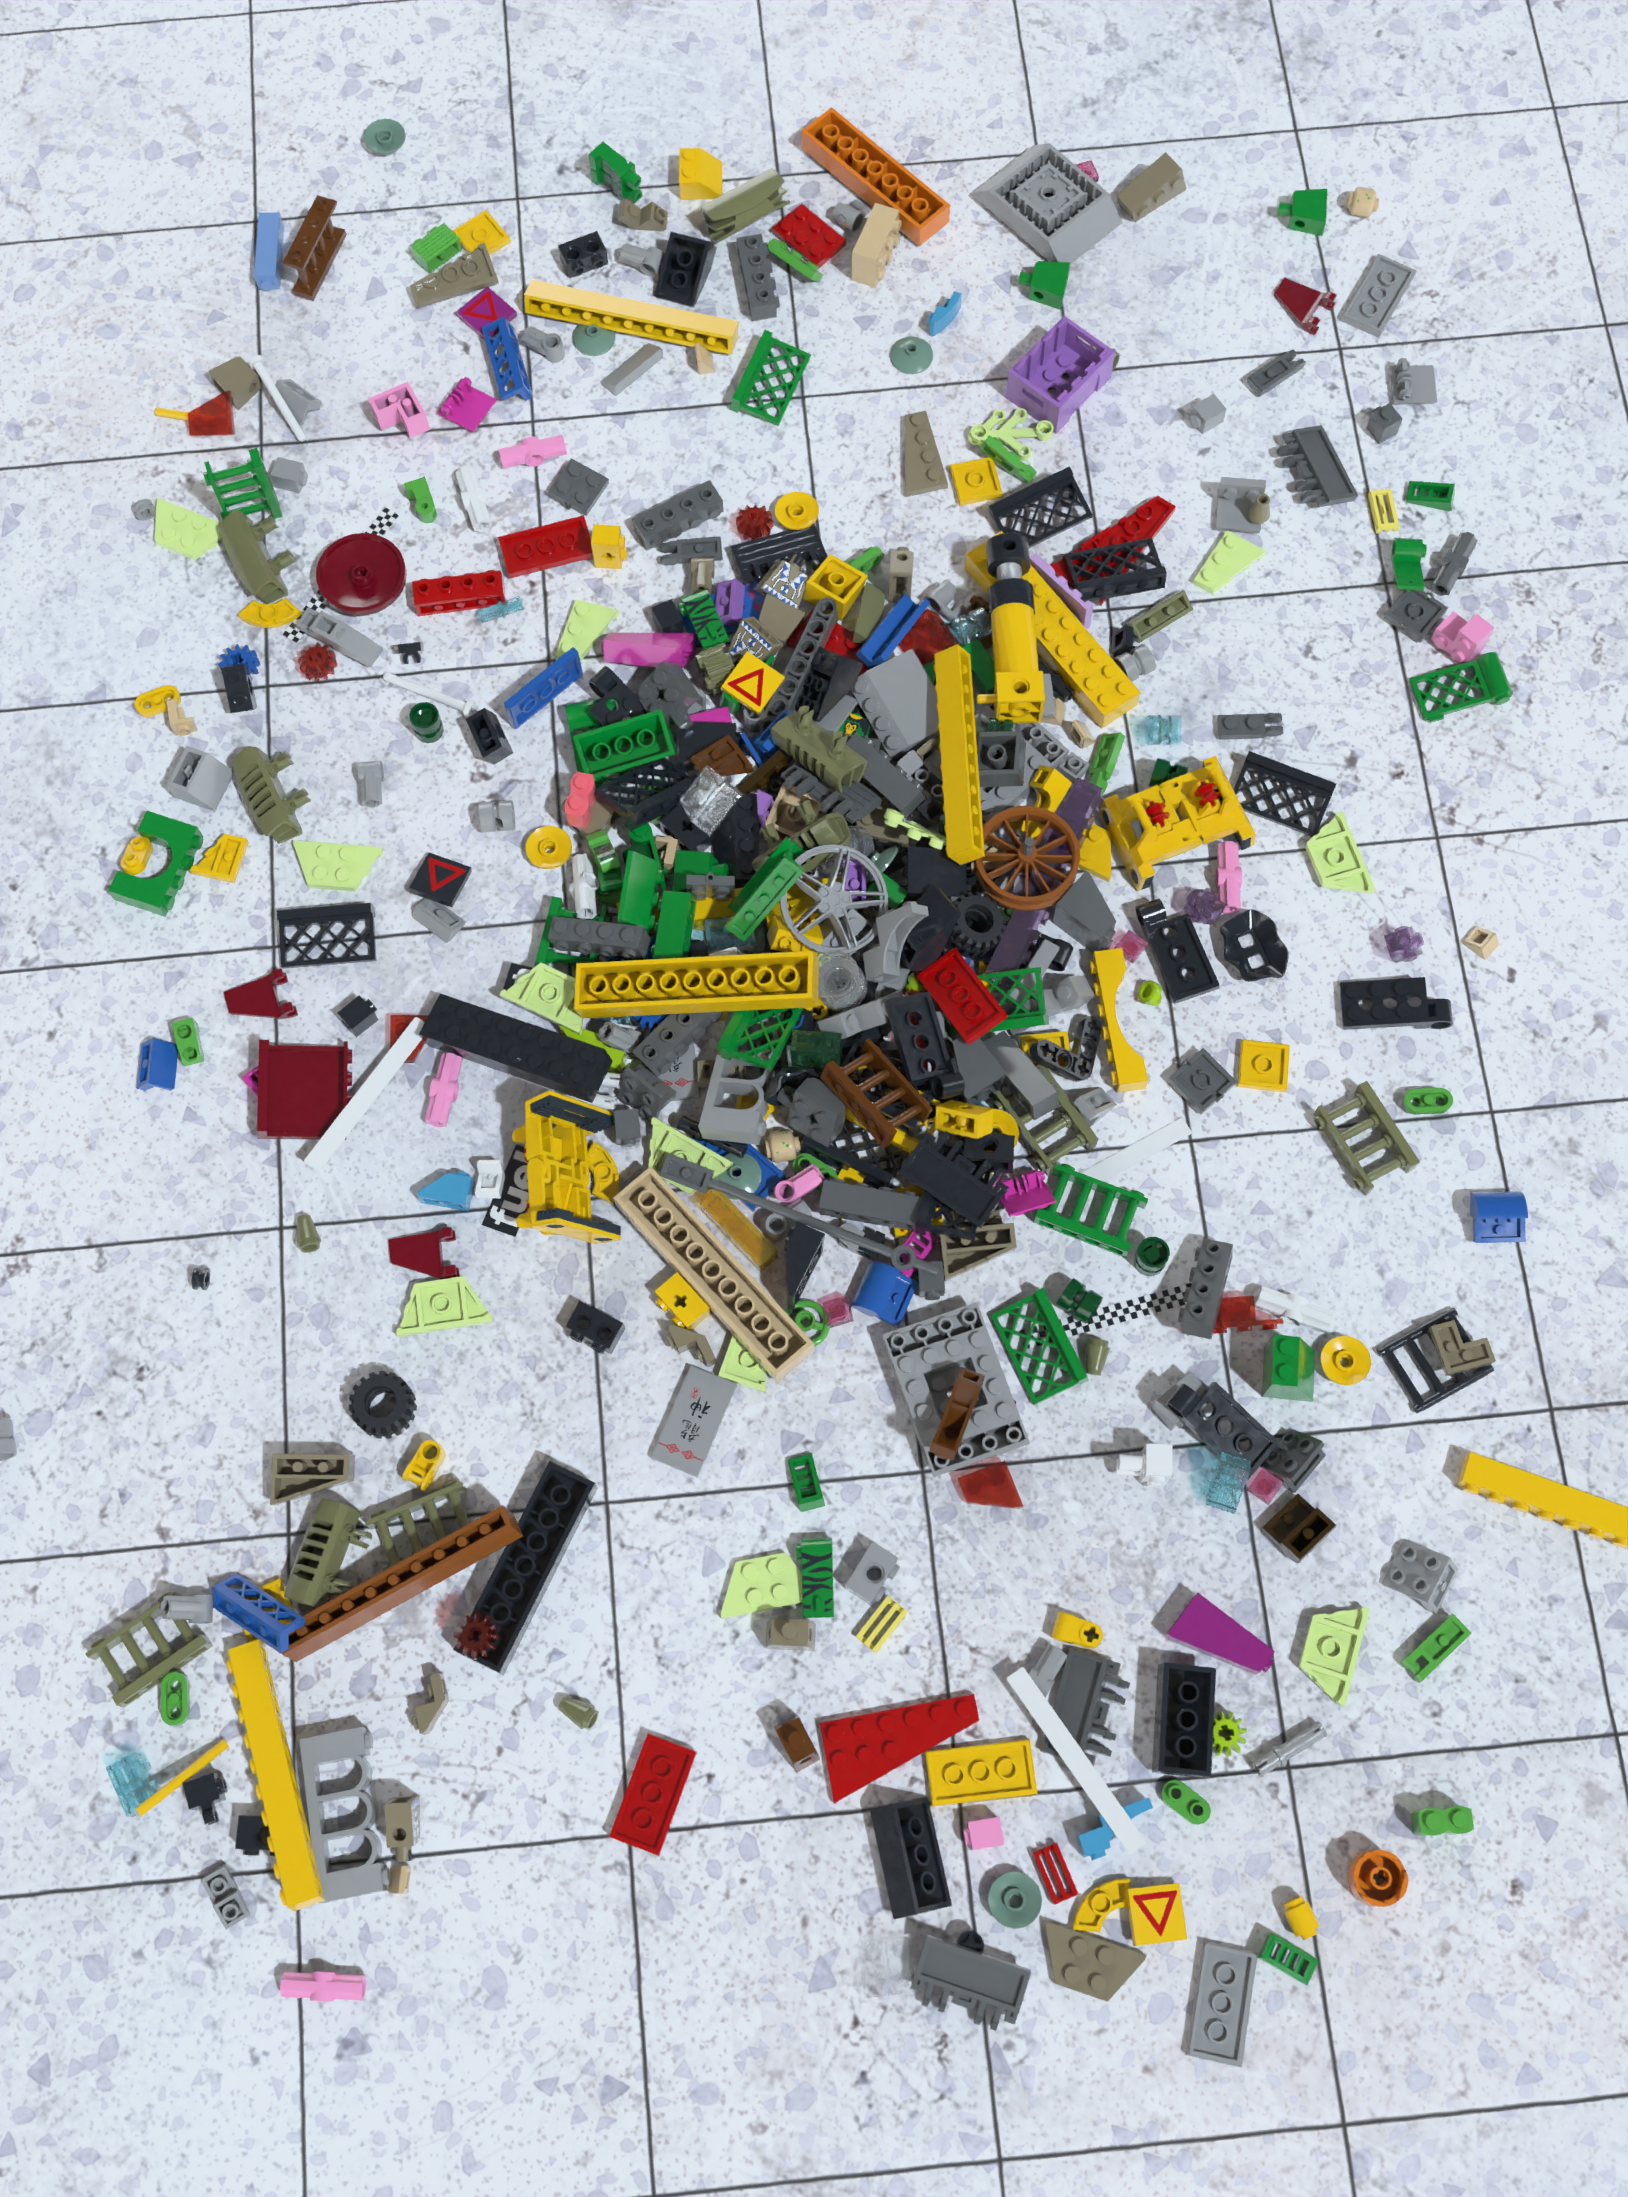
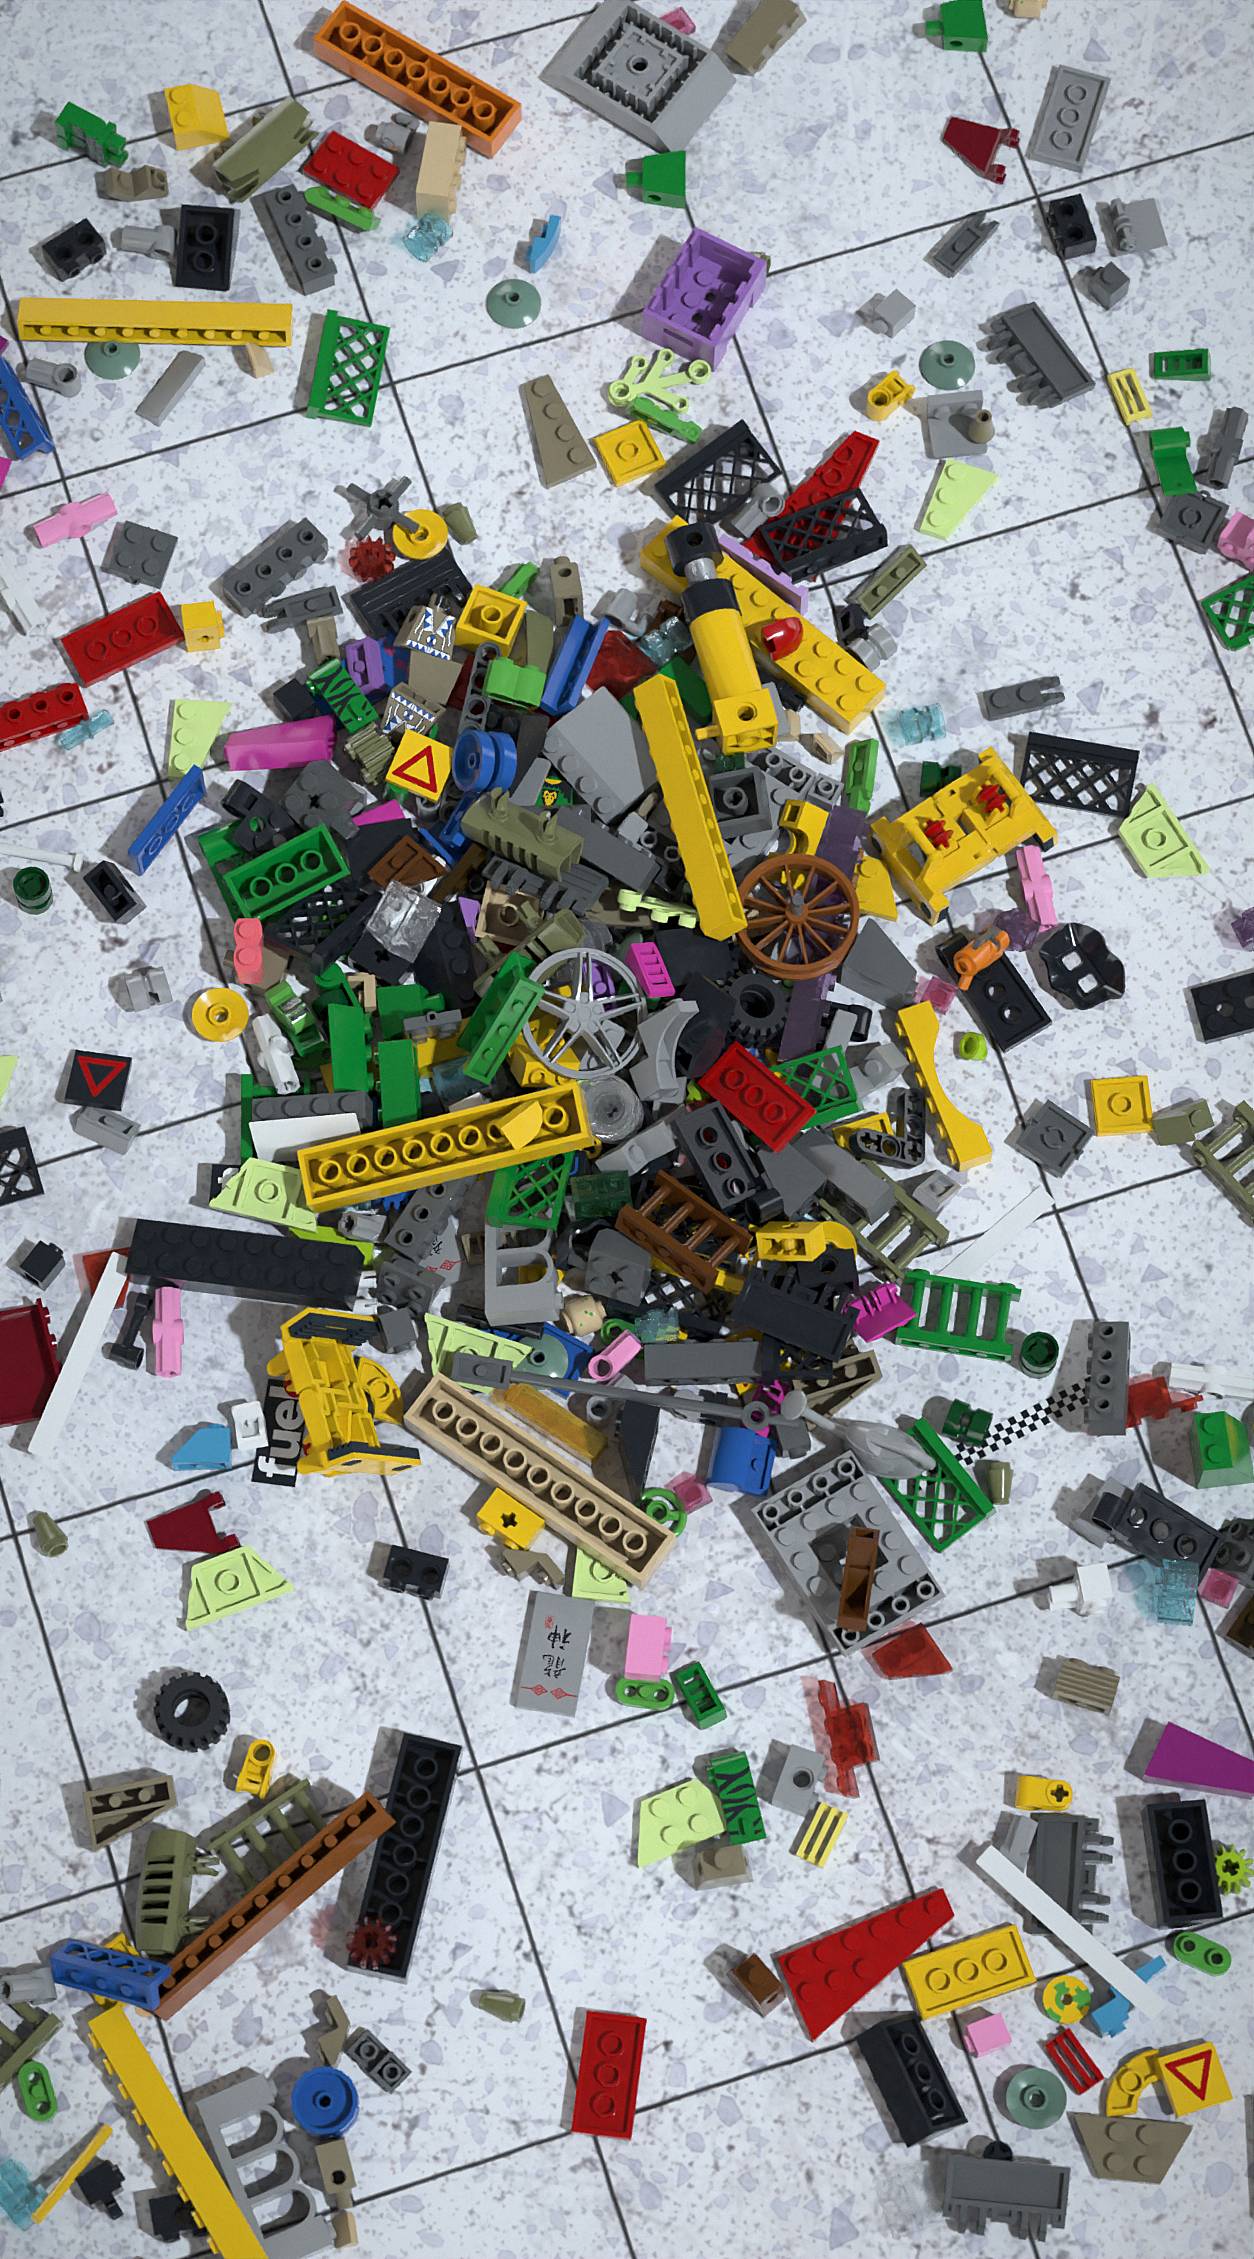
camera: 15 degrees left, 0 degrees up
(407, 1099) = (126, 1352): none -> black brick
(423, 1767) = (329, 2121): none -> blue wheel
(463, 1737) = (378, 2061): none -> dark grey slope
(568, 950) = (284, 1137): none -> white sticker
(759, 976) = (521, 1124): none -> yellow brick
(760, 1471) = (645, 1694): none -> bright green plate
(768, 1433) = (646, 1648): none -> bright pink brick
(771, 485) = (383, 508): none -> dark grey bar
(802, 686) = (484, 761): none -> blue wheel
(830, 508) = (460, 522): none -> olive cone
(839, 1166) = (658, 1326): none -> clear light blue brick
(841, 633) = (513, 683): none -> bright green brick
(857, 290) = (425, 238): none -> clear light blue wheel
(896, 873) = (649, 968): none -> dark pink slope
(923, 1545) = (850, 1737): none -> clear red bracket
(998, 1303) = (876, 1446): none -> light grey piece
(1047, 1816) = (1075, 1990): none -> yellow piece
(1064, 638) = (782, 637): none -> red brick
(1066, 542) = (758, 510): none -> light grey piece
(1133, 1545) = (1086, 1686): none -> dark tan brick
(1171, 917) = (980, 953): none -> orange piece
(1192, 473) = (892, 393): none -> yellow piece
(1237, 467) = (945, 375): none -> sand green dish
(1311, 1090) = (1183, 1123): none -> olive slope
(1363, 374) = (1076, 226): none -> black brick

